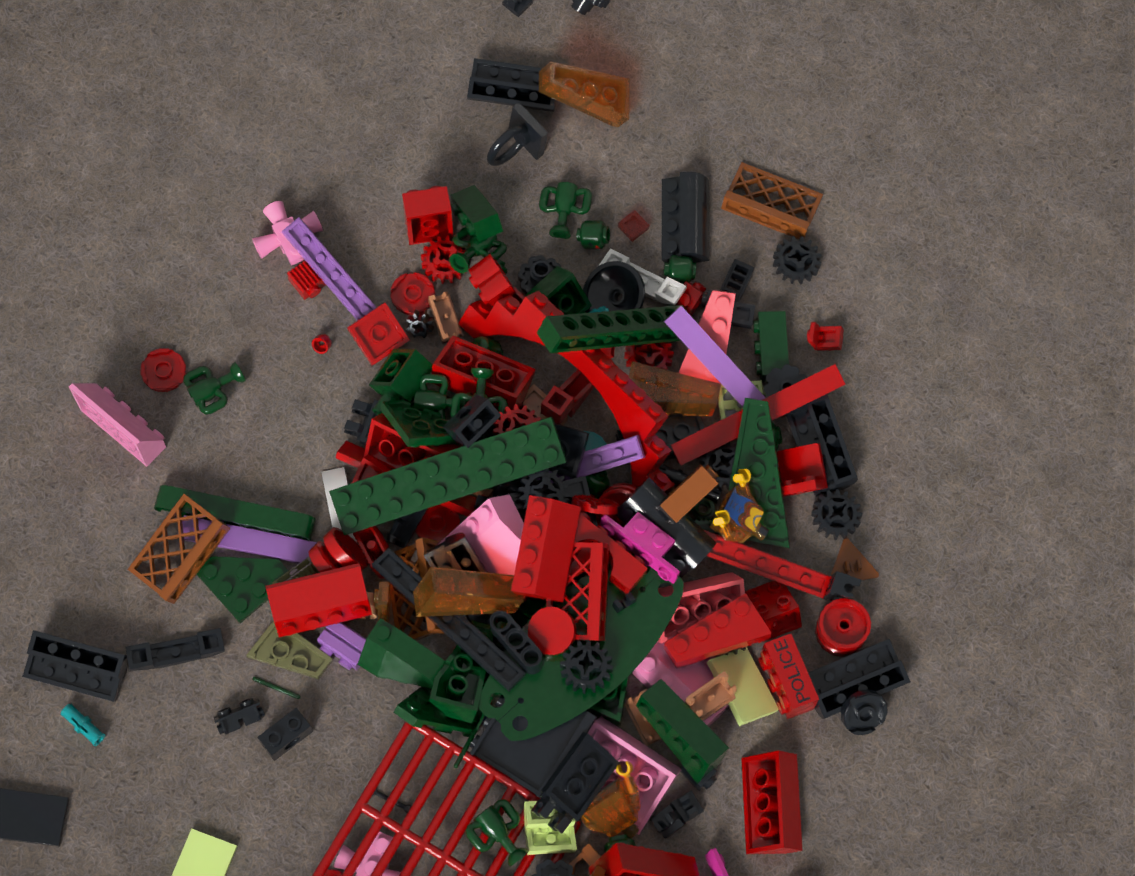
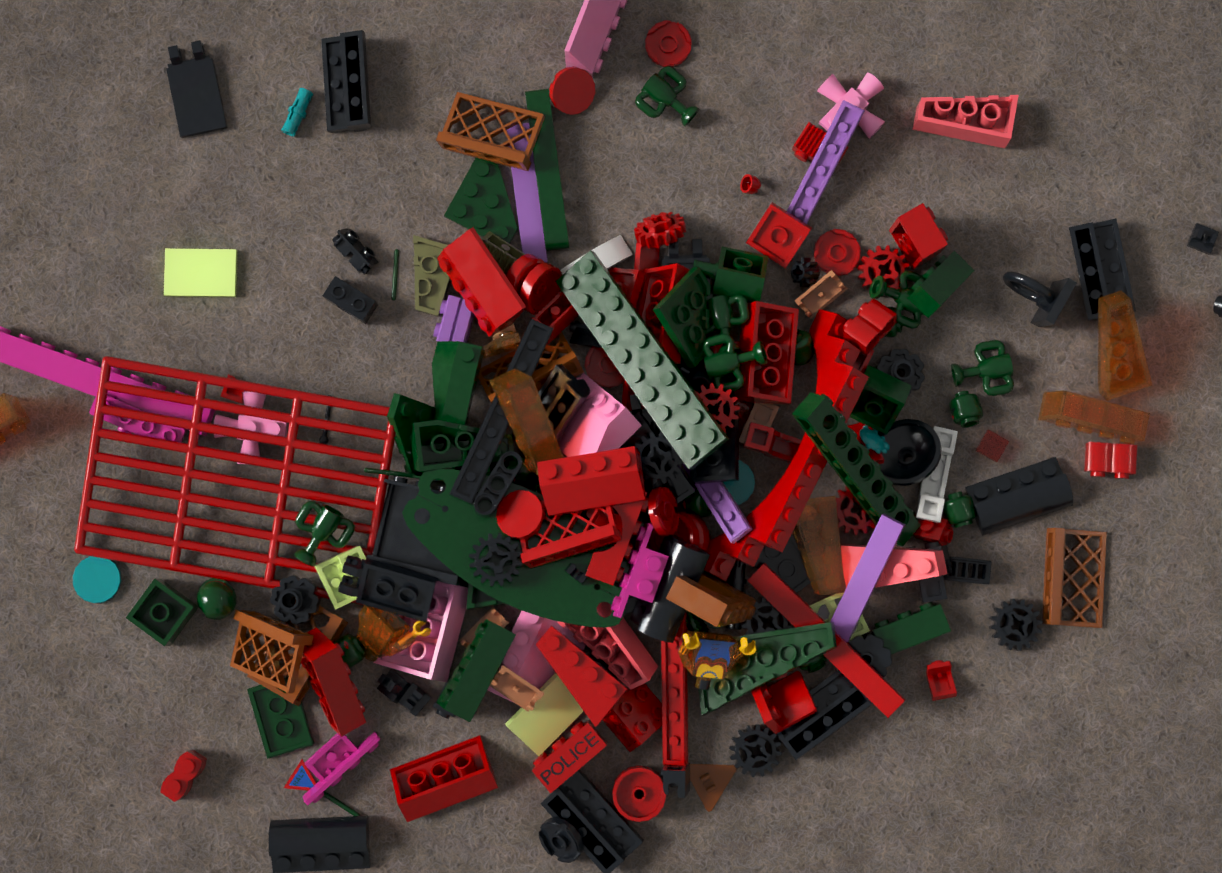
camera: 75 degrees right, 15 degrees up
(171, 464) = (572, 90): none -> red tile
(174, 652) = (394, 167): black slope -> none
(332, 430) = (660, 230): none -> red gear
(339, 143) = (969, 118): none -> coral wedge
(471, 420) = (700, 361): black brick -> none
(637, 136) = (1094, 415): none -> clear orange wedge
(679, 136) = (1111, 459): none -> red brick

